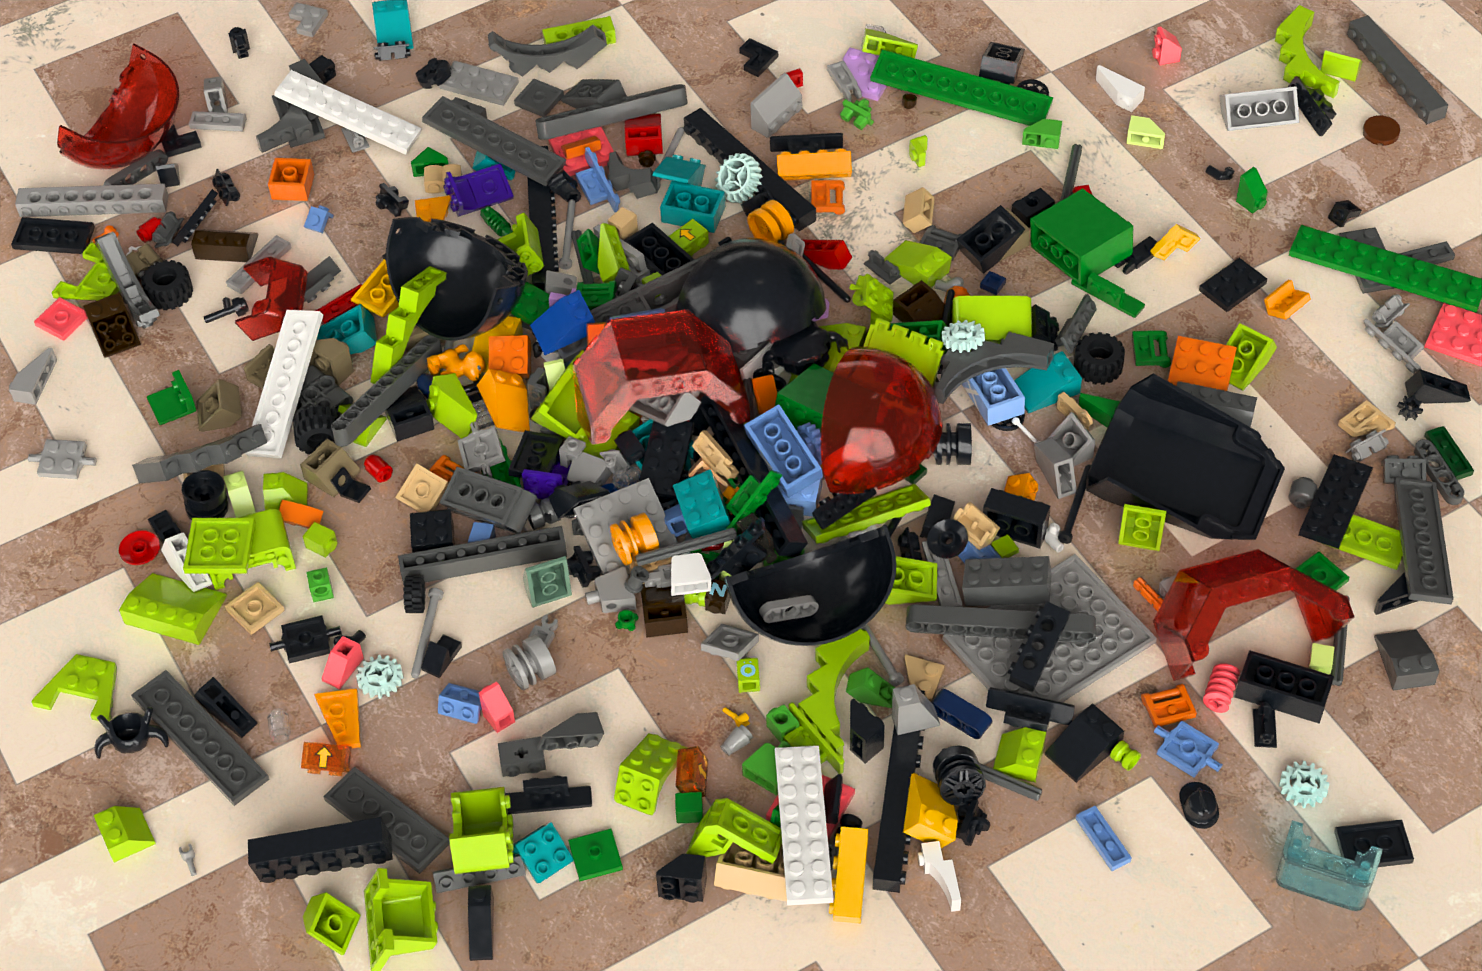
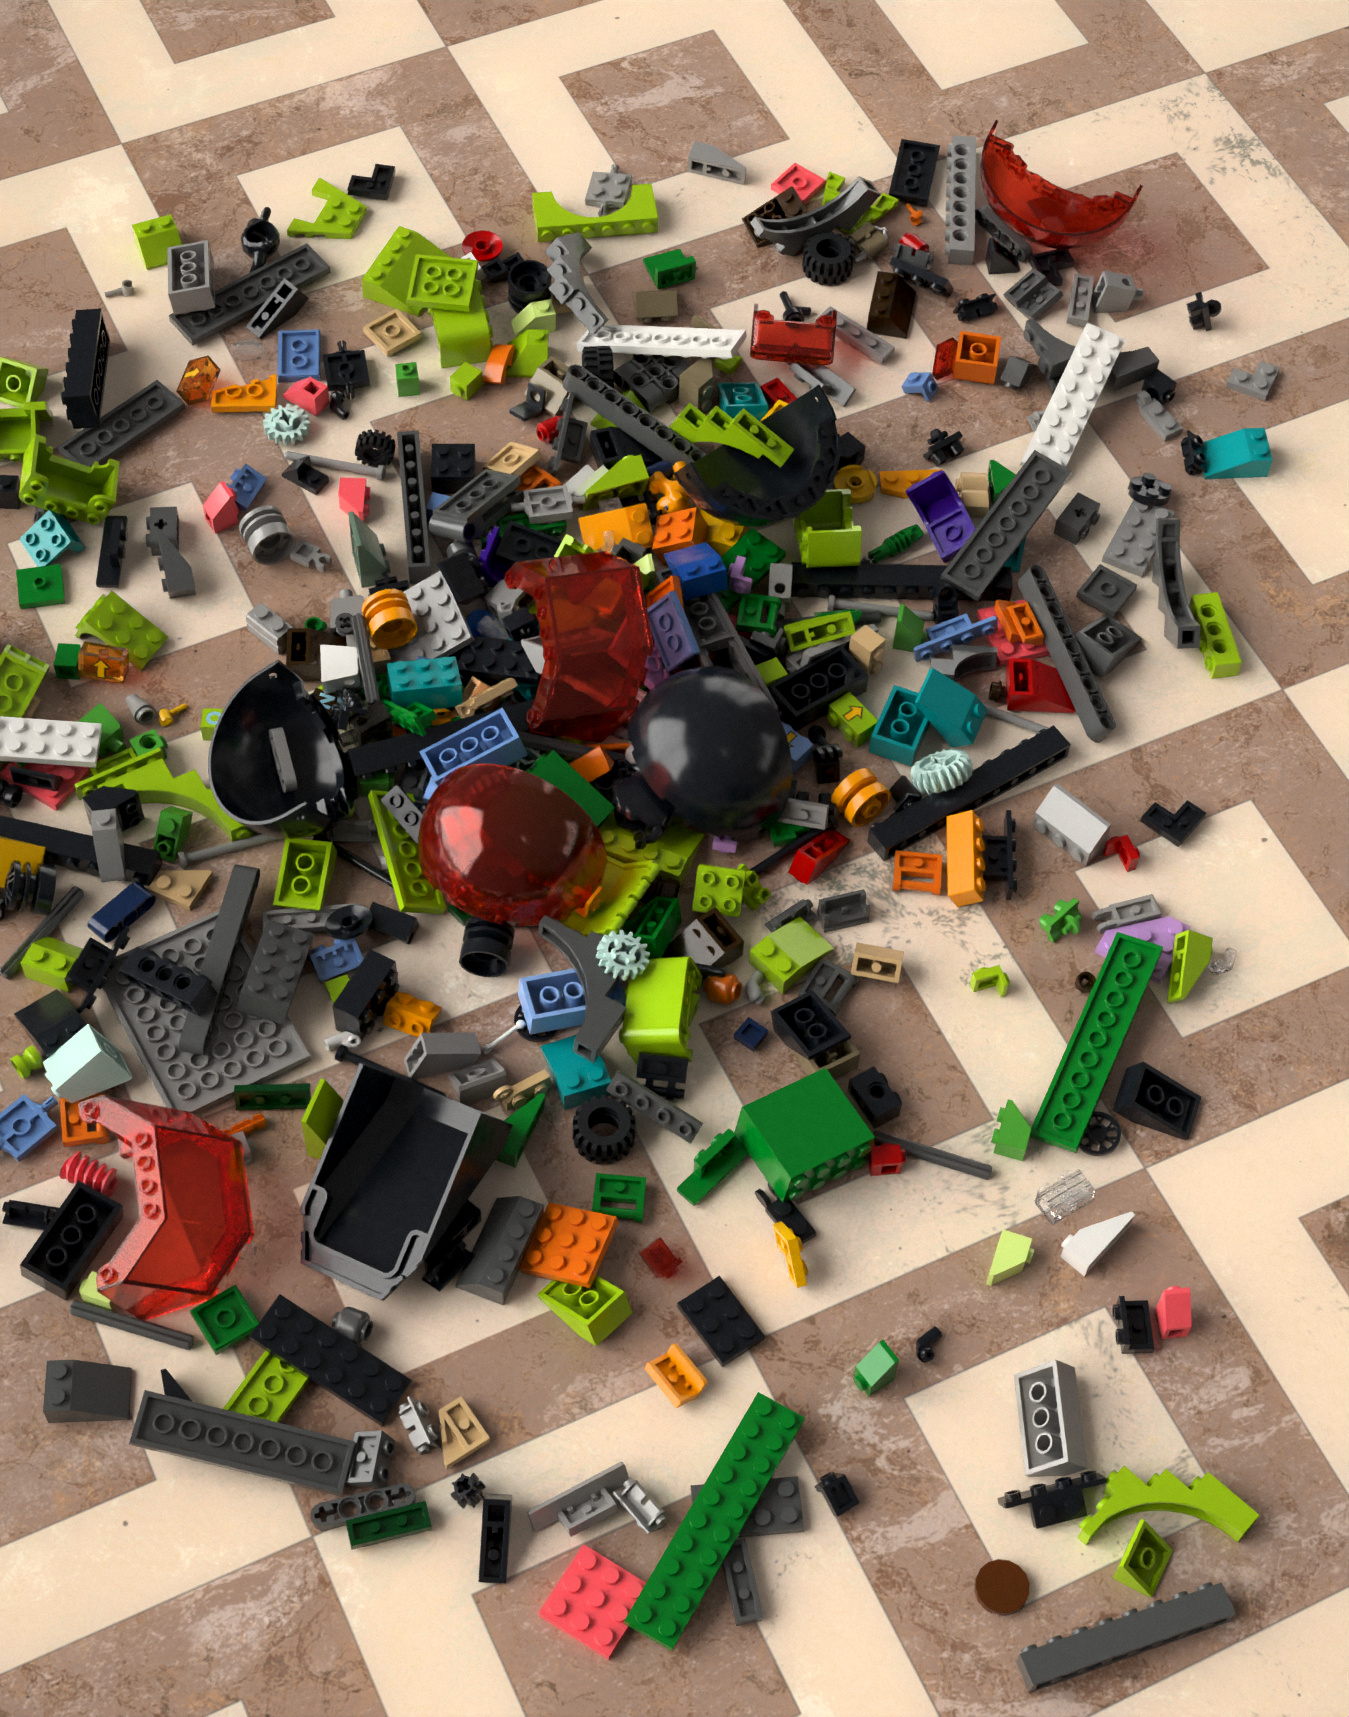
camera: 90 degrees right, 5 degrees up
(46, 650) = (373, 187): none -> black plate
(108, 494) = (635, 217): none -> lime arch
(188, 780) = (191, 277): none -> light grey brick
(213, 149) = (1033, 294): none -> dark grey slope
(282, 685) = (299, 355): none -> medium blue tile
(288, 203) = (945, 358): none -> clear red plate
(306, 150) = (1017, 372): none -> dark grey slope
(349, 73) = (1157, 416): none -> light grey hinge
(394, 450) = (570, 439): none -> dark grey bracket
(445, 433) = (584, 480): none -> white bracket
(473, 607) = (354, 495): none -> coral slope
(525, 405) = (609, 541): none -> clear arm
(585, 133) = (1026, 623): none -> orange slope
(596, 210) = (908, 630): none -> bright green slope
(635, 649) = (268, 627): none -> light grey brick
(870, 235) = (843, 911): none -> dark grey hinge
(909, 545) = (361, 892): black hinge -> none
(979, 527) = (357, 948): tan hinge -> none
(1088, 105) = (1064, 1196): none -> clear brick
(1116, 574) = (272, 1096): none -> dark green plate
(1128, 704) = (85, 1066): none -> light aqua slope
(1178, 70) = (1133, 1325): none -> black bracket
(1198, 317) = (660, 1259): none -> clear red bracket

